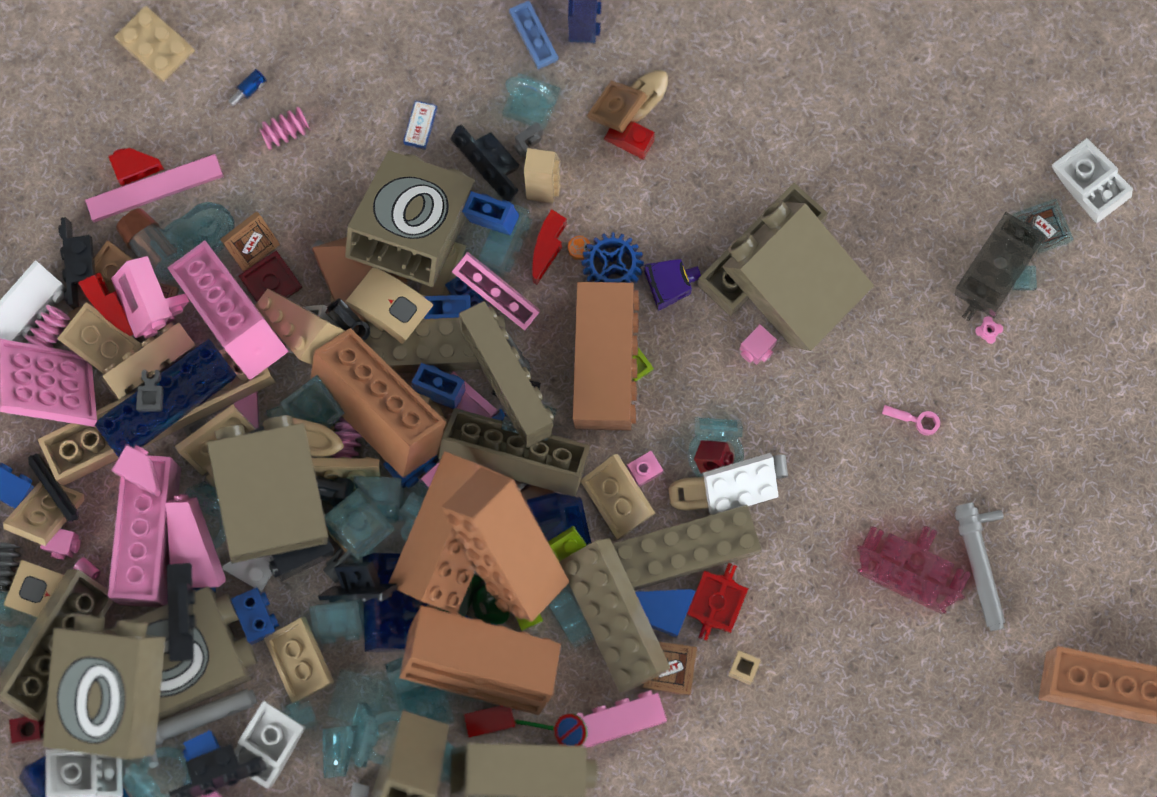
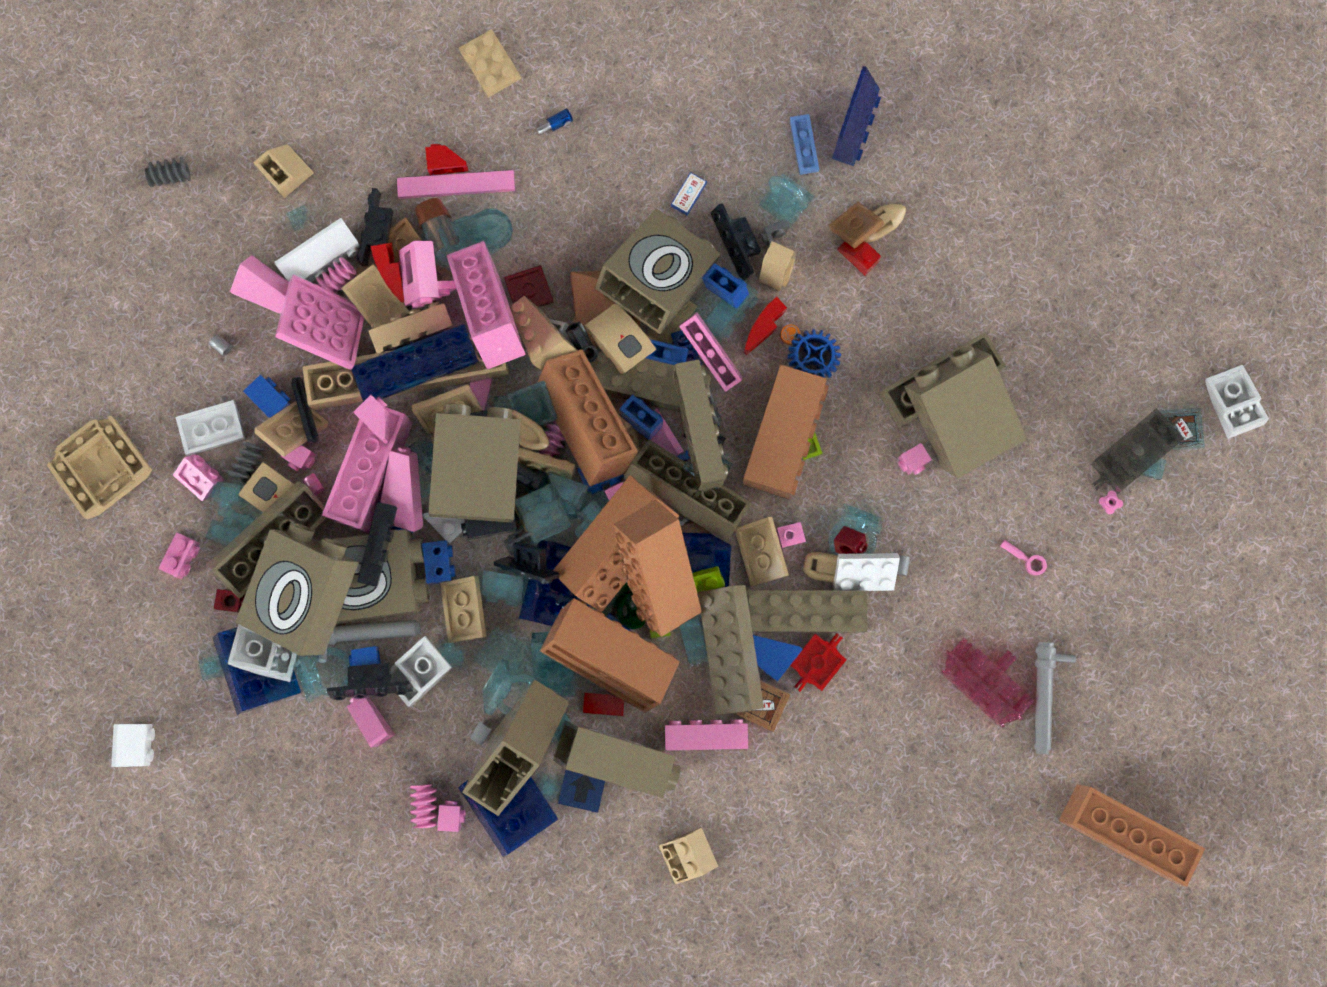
camera: 15 degrees right, 5 degrees up
(150, 396) = (402, 358): dark grey plate -> none
(250, 241) = (521, 252): medium nougat tile -> none
(284, 128) = (575, 164): bright pink piece -> none
(337, 750) = (474, 692): clear light blue wing -> none
(568, 729) = (665, 732): piece -> none
(670, 281) = (857, 384): dark purple torso -> none
(744, 667) = (824, 723): tan brick -> none

